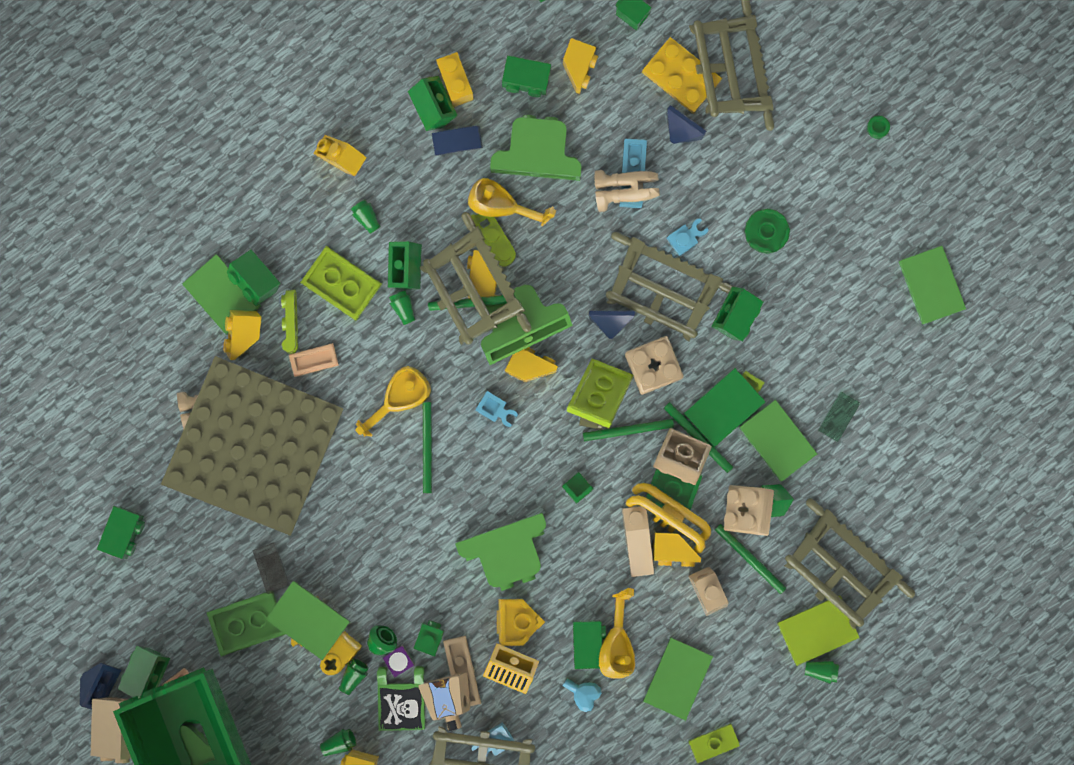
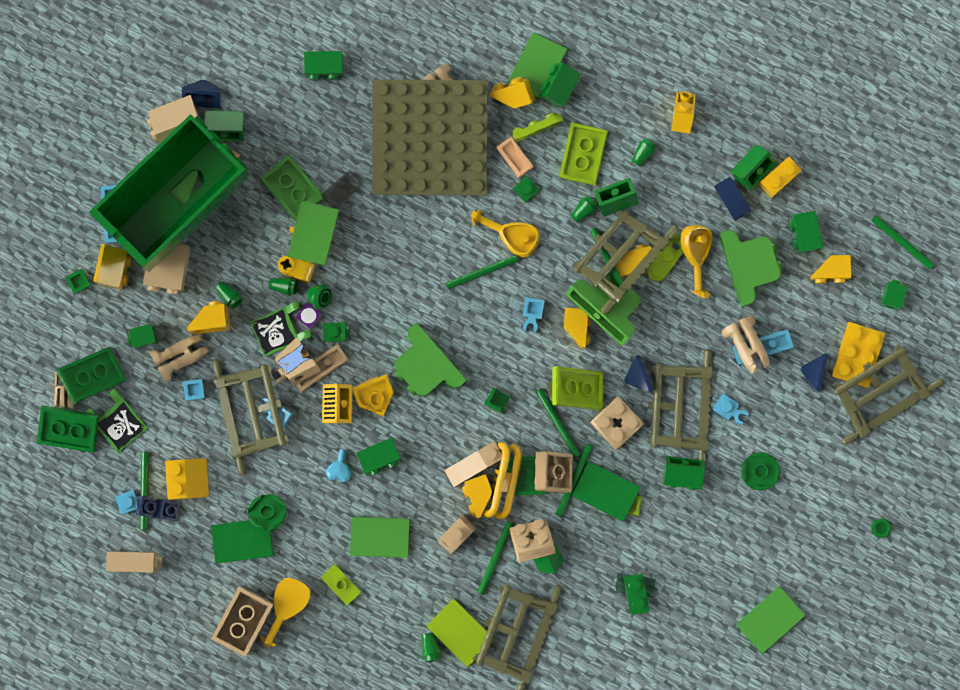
camera: 70 degrees right, 0 degrees up
(354, 362) = (526, 189): none -> green plate
(617, 653) = (382, 480): yellow piece -> none
(778, 440) = (596, 544): bright green tile -> none
(850, 419) = (636, 594): none -> green plate

